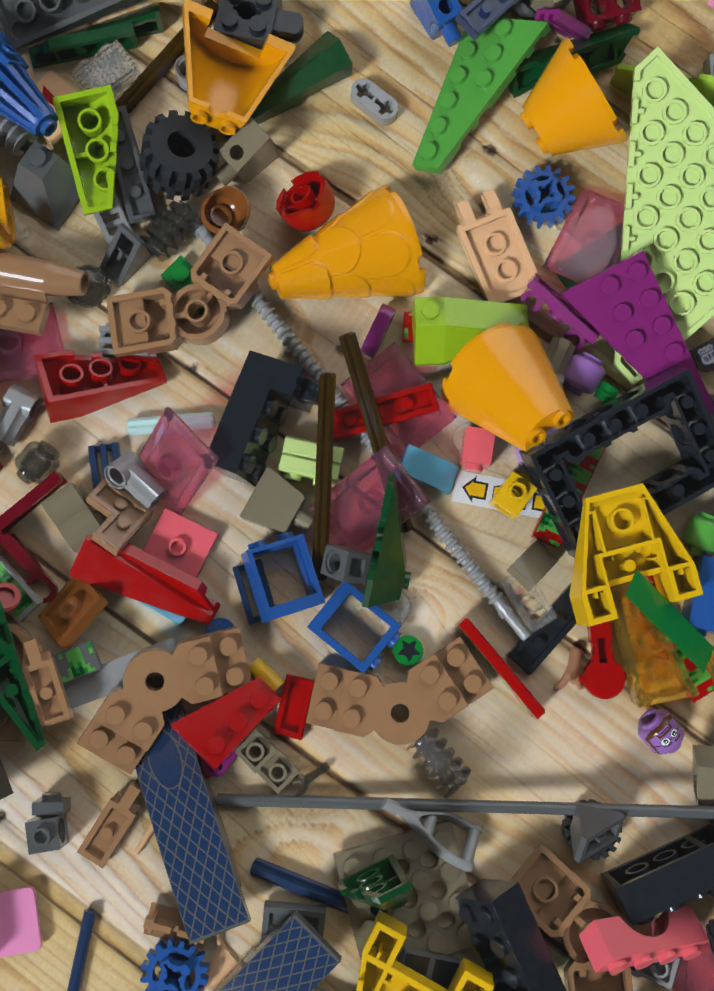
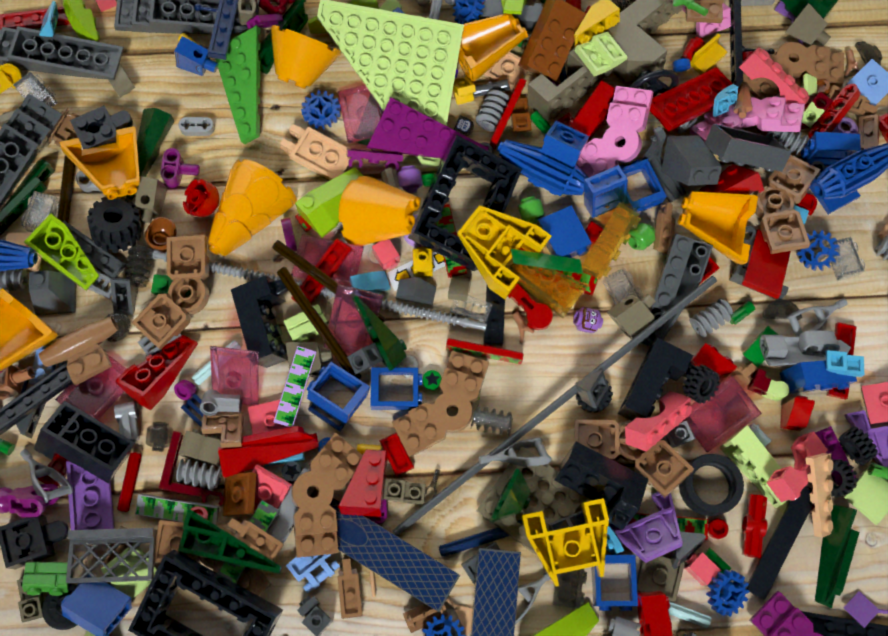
camera: 35 degrees left, 10 degrees down
(44, 546) = (198, 475): none -> light grey piece
(80, 758) = (304, 566): none -> light blue plate
(110, 428) = (185, 389): none -> magenta tile
(112, 630) = (269, 487): none -> coral plate
(156, 628) = (291, 471): none -> dark grey tile
(235, 531) = (294, 387): none -> tile
(309, 138) = (176, 168): none -> magenta beam
(477, 523) = (416, 291): none -> dark grey slope

